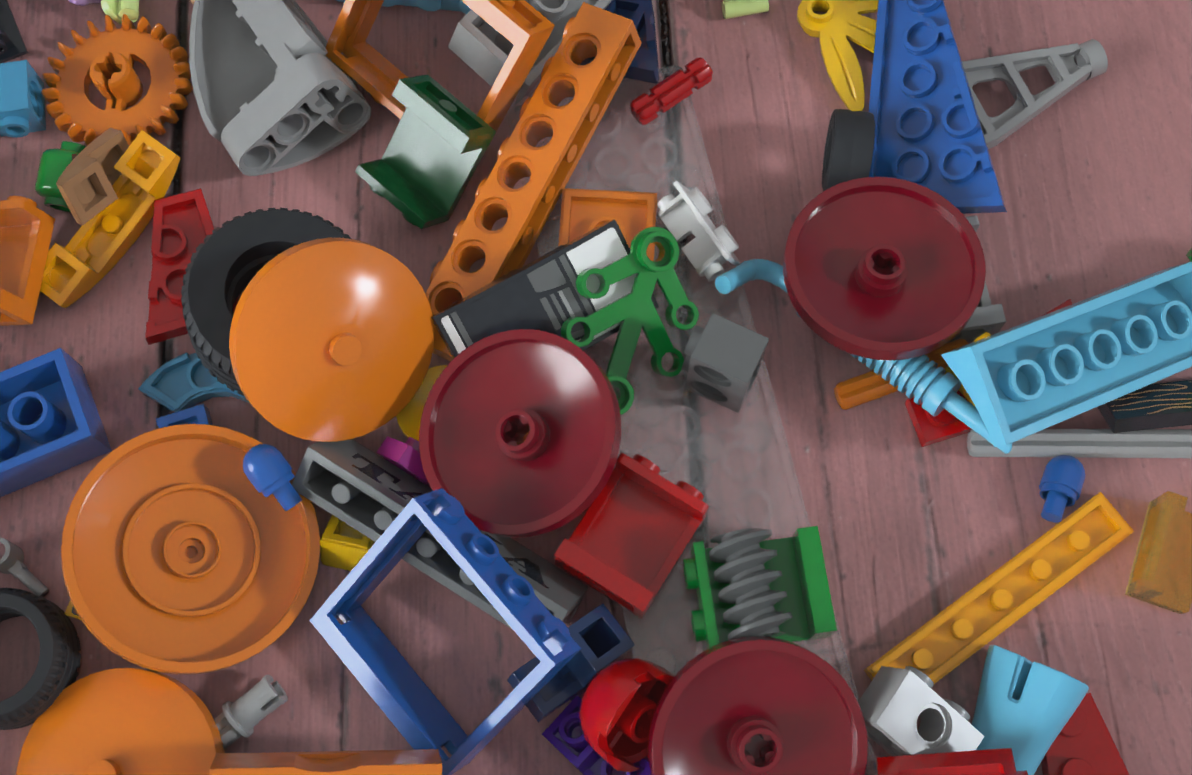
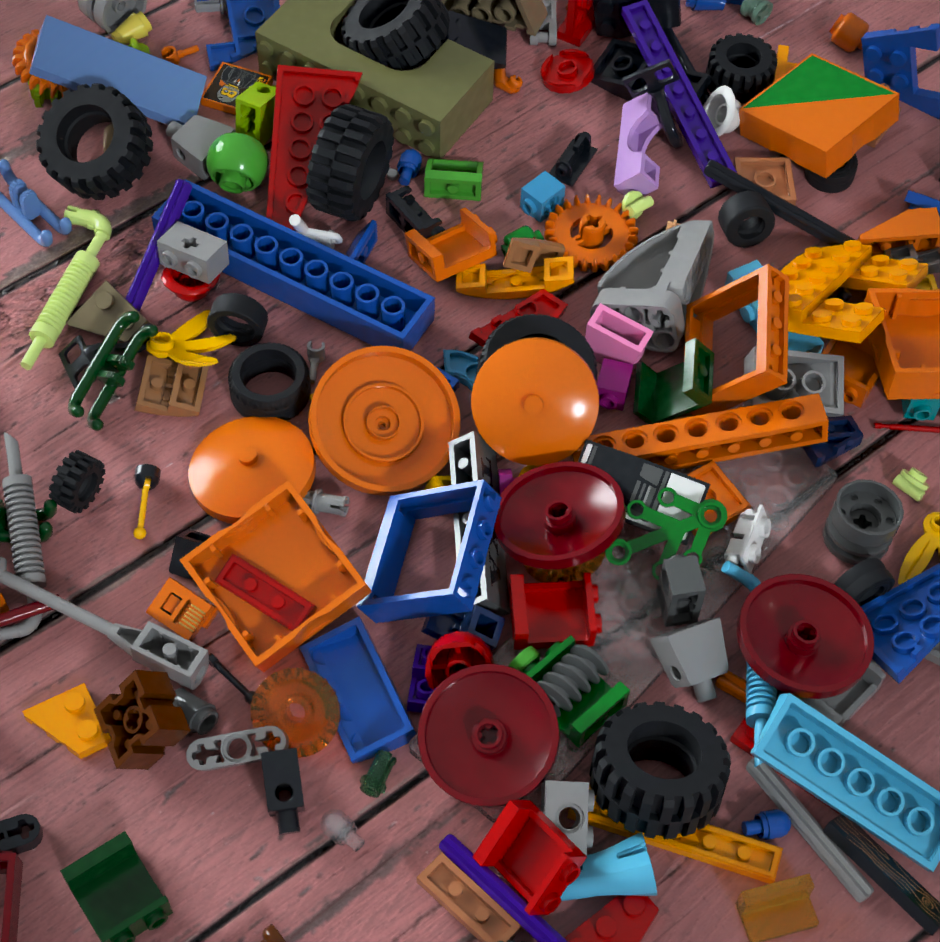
camera: 50 degrees right, 15 degrees down
(271, 474) = (447, 427): blue cylinder -> none
(307, 169) = (616, 336): none -> bright pink torso
(360, 216) = (614, 383): none -> magenta brick
(671, 91) = (815, 476): red axle -> none
(679, 623) = (525, 658): none -> bright green tile
(769, 87) = (862, 521): none -> dark grey wheel
(804, 408) = (693, 656): none -> light grey torso
(950, 506) = (652, 802): none -> black tyre

